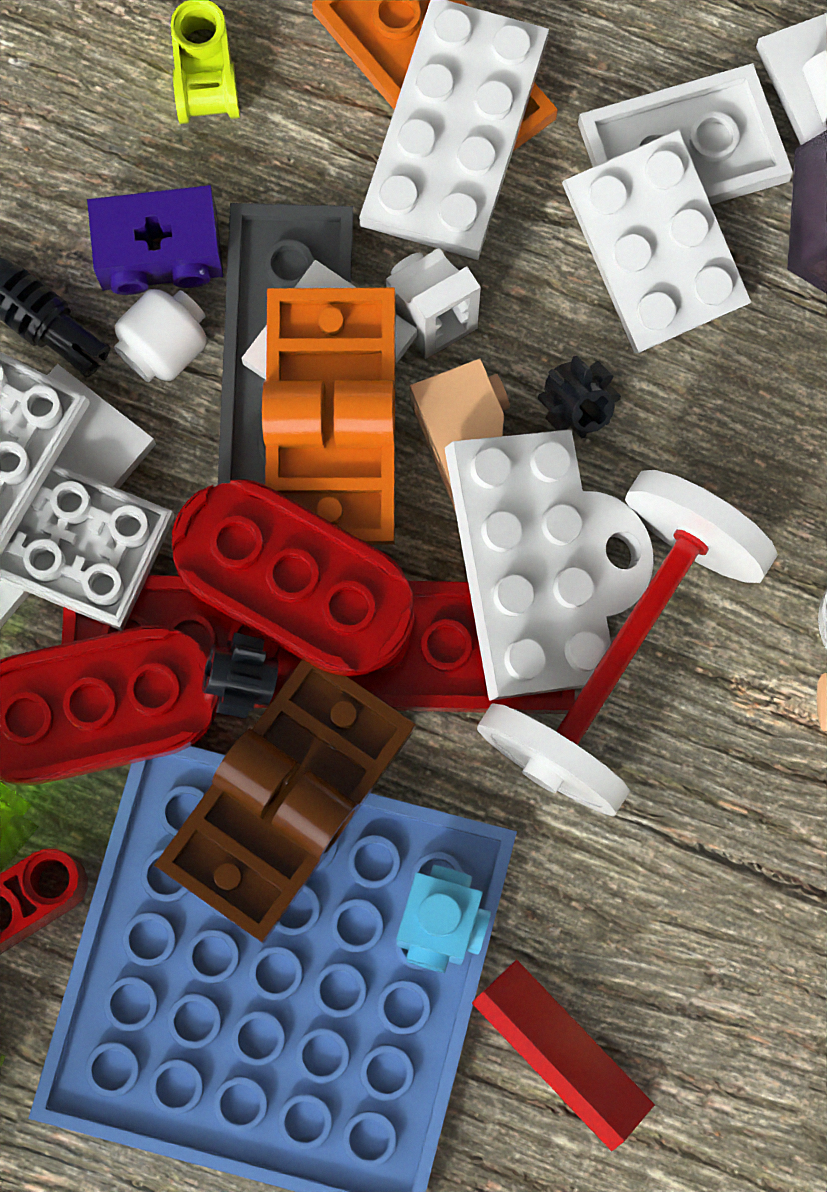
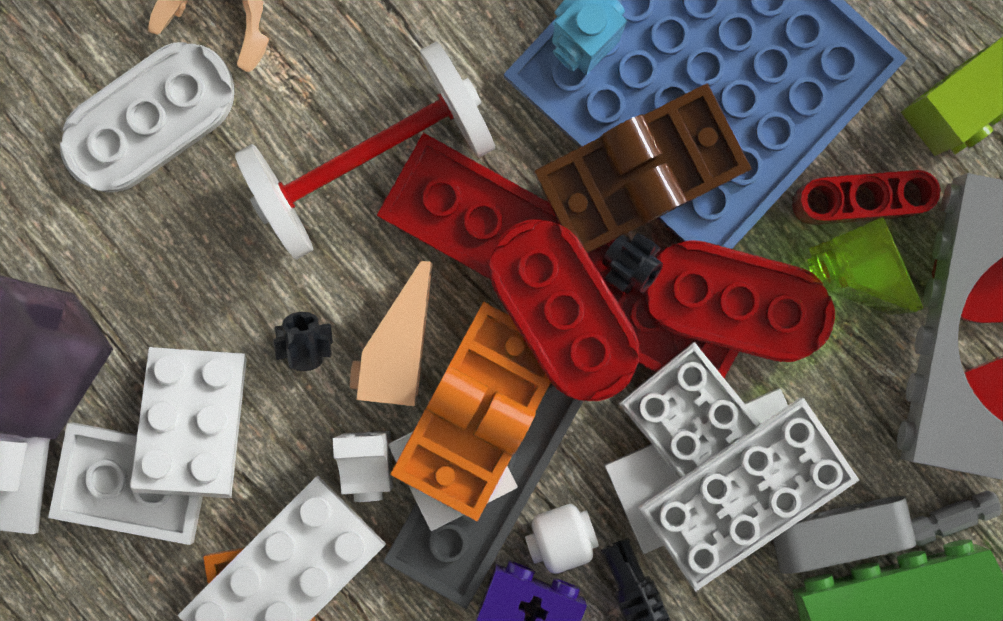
camera: 155 degrees left, 10 degrees up
(541, 560) = (391, 238): white plate -> none

